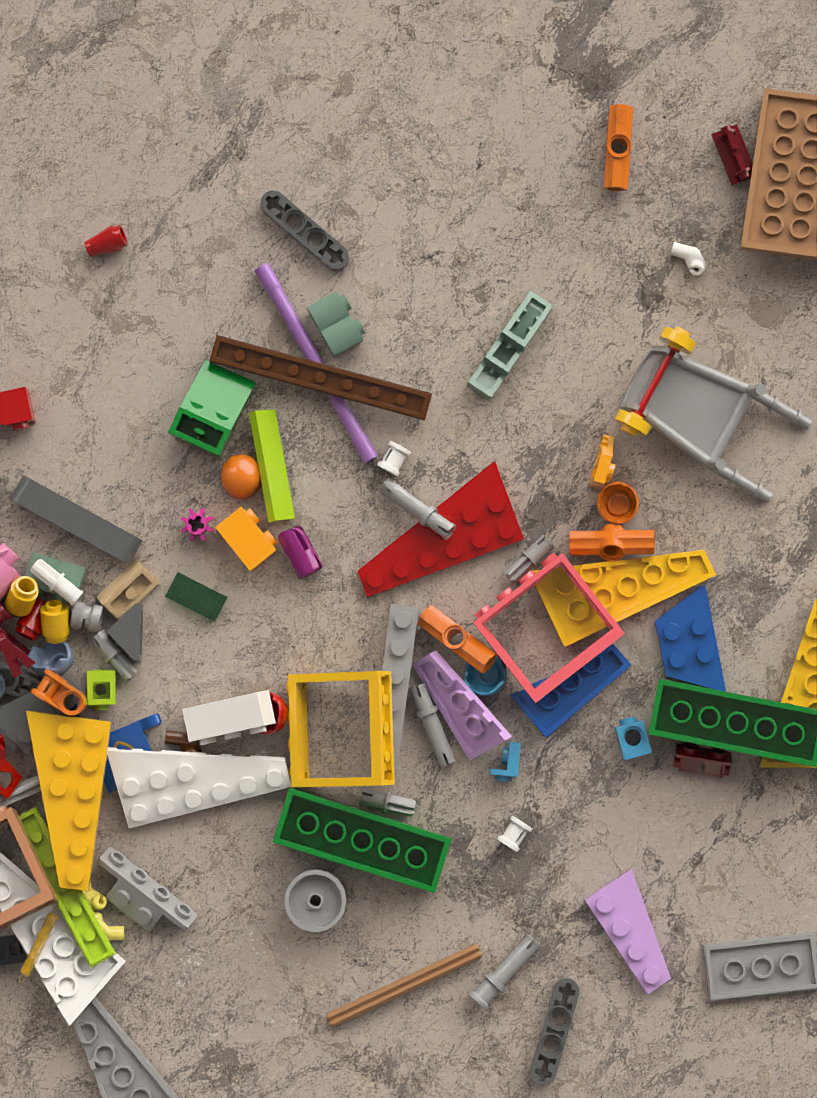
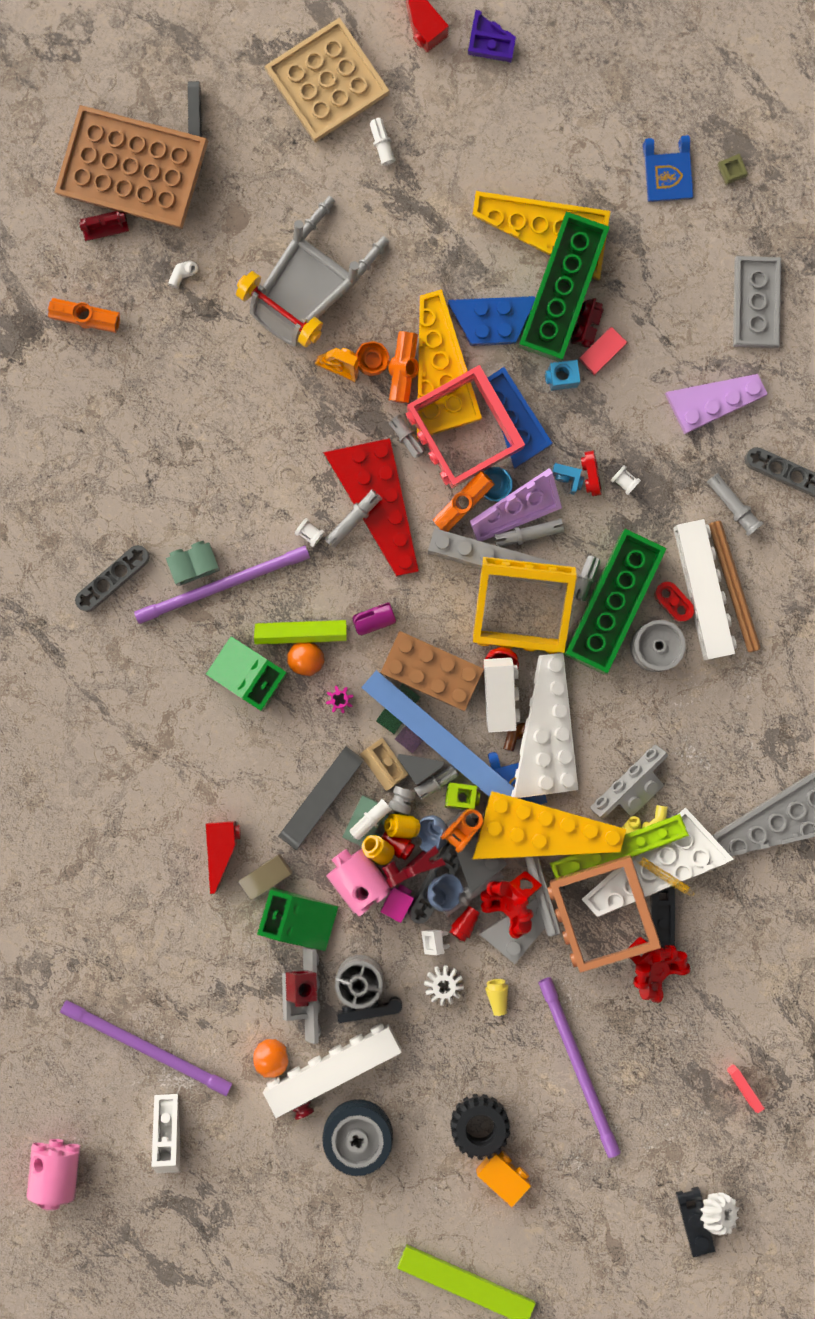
camera: 85 degrees left, 0 degrees up
(107, 241) = (96, 740): red cone -> none
(164, 616) = (408, 739): none -> clear purple tile
(169, 647) = (435, 735): none -> medium blue tile
(246, 538) = (357, 660): light orange brick -> none
(246, 630) = (431, 671): none -> medium nougat brick
(320, 377) = (234, 581): reddish brown tile -> none
(374, 913) = (675, 600): none -> red plate
(393, 948) = (704, 589): none -> white brick
(506, 794) = (593, 482): none -> red plate
(509, 345) = (231, 426): sand green slope -> none
(671, 784) = (602, 351): none -> coral tile

